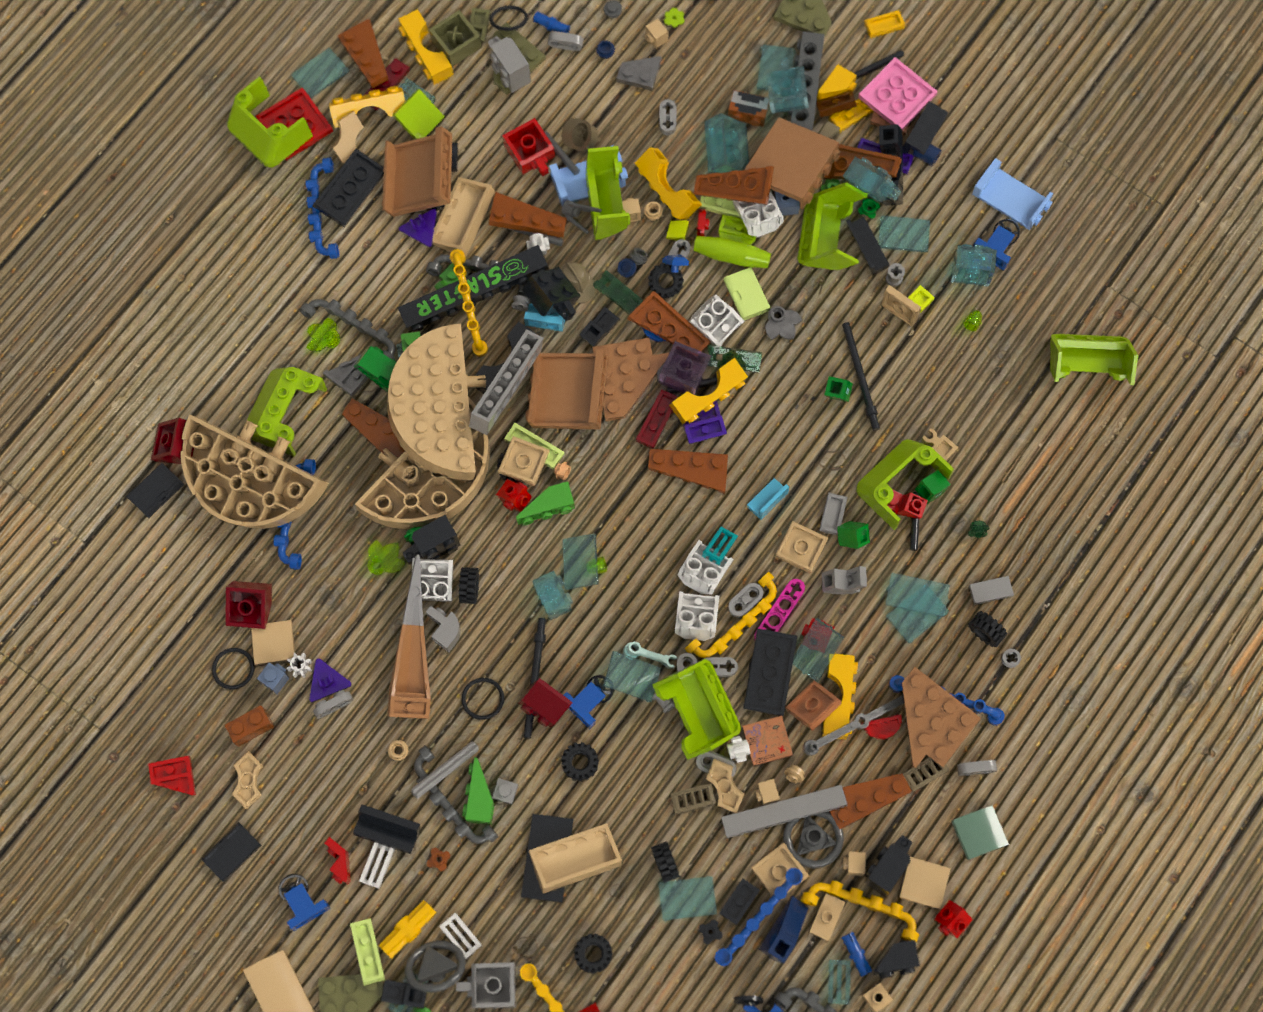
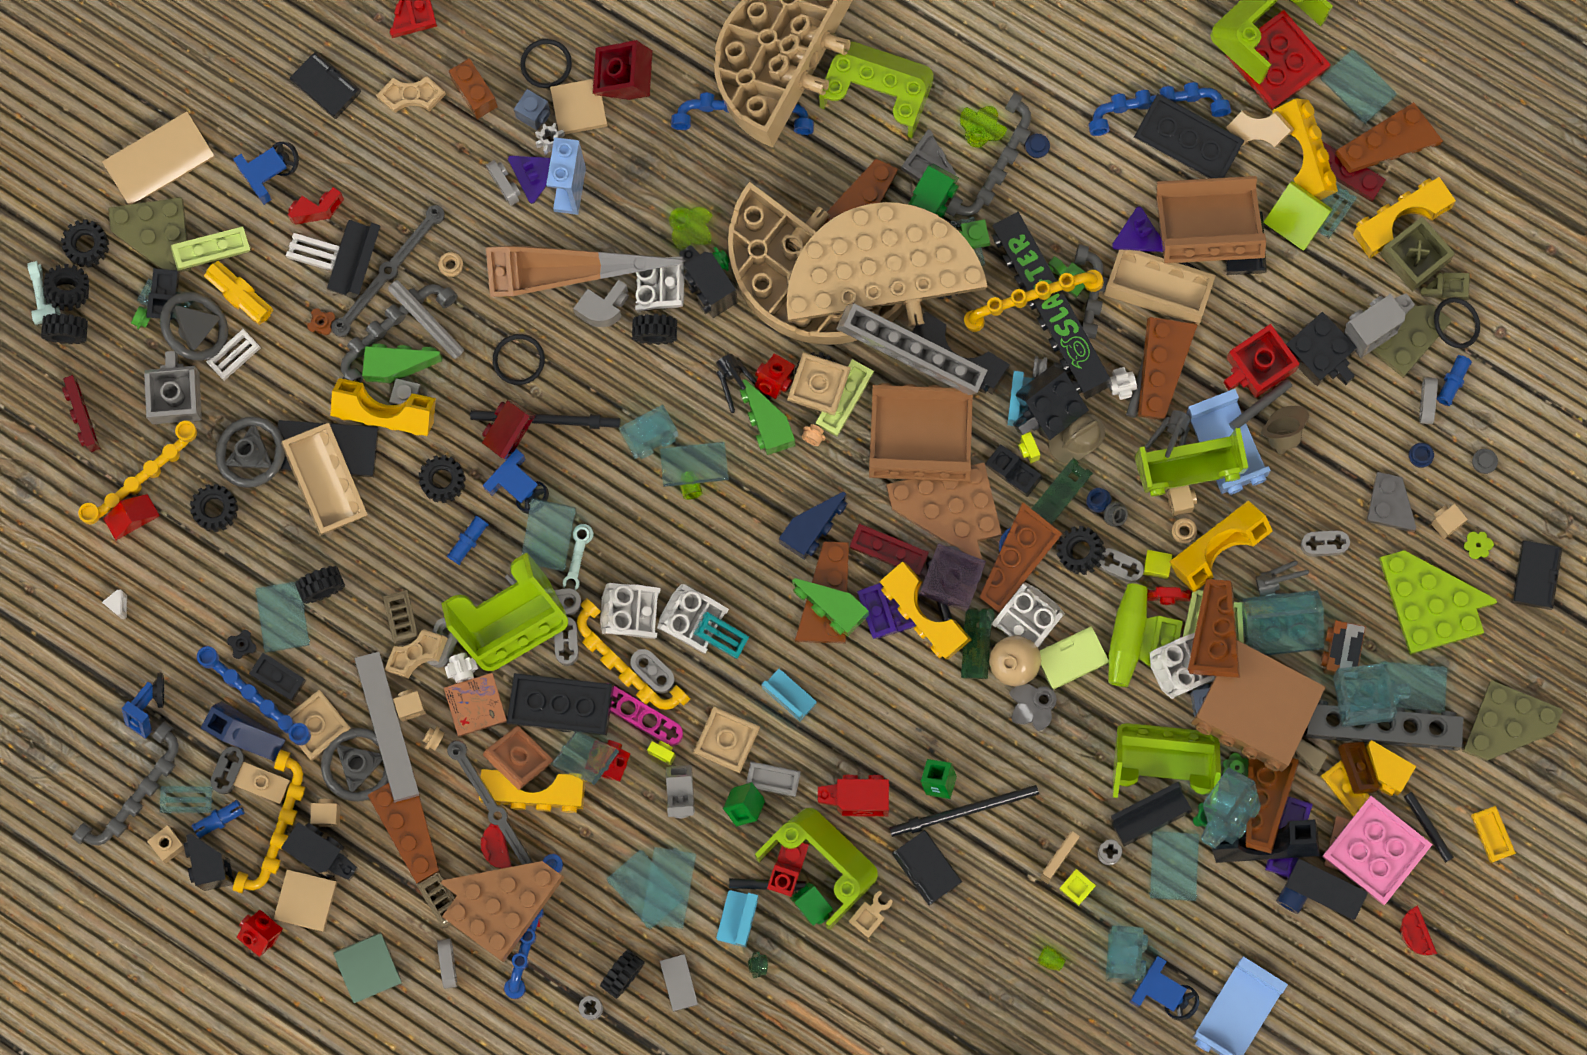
camera: 90 degrees right, 5 degrees up
(337, 644) = (567, 175): none -> light blue panel
(343, 295) = (1037, 145): none -> dark blue plate
(354, 763) = (341, 326): none -> dark grey piece
(503, 529) = (730, 368): none -> black plant
(523, 105) = (1323, 351): none -> black hinge
(525, 784) = (353, 403): none -> yellow arch
(547, 921) = (250, 452): none -> dark grey piece
(584, 313) = (1029, 448): none -> neon yellow plate
(632, 742) = (467, 540): none -> blue pin
(638, 478) = (806, 529): none -> dark blue slope
(675, 261) = (1100, 558): blue piece -> none
(697, 155) = (1269, 582): none -> dark grey plant
(704, 453) = (838, 606): none -> bright green slope
(715, 51) = (1431, 603): none -> lime wing
(748, 331) = (1015, 660): none -> tan cylinder
(810, 594) = (662, 751): none -> neon yellow plate
(818, 941) = (222, 767): none -> dark grey beam
(851, 445) = (857, 796): none -> red hinge
(904, 404) = (927, 868): none -> black piece
(941, 543) = (737, 918): none -> medium azure panel
(955, 77) = (1416, 934): none -> red plate

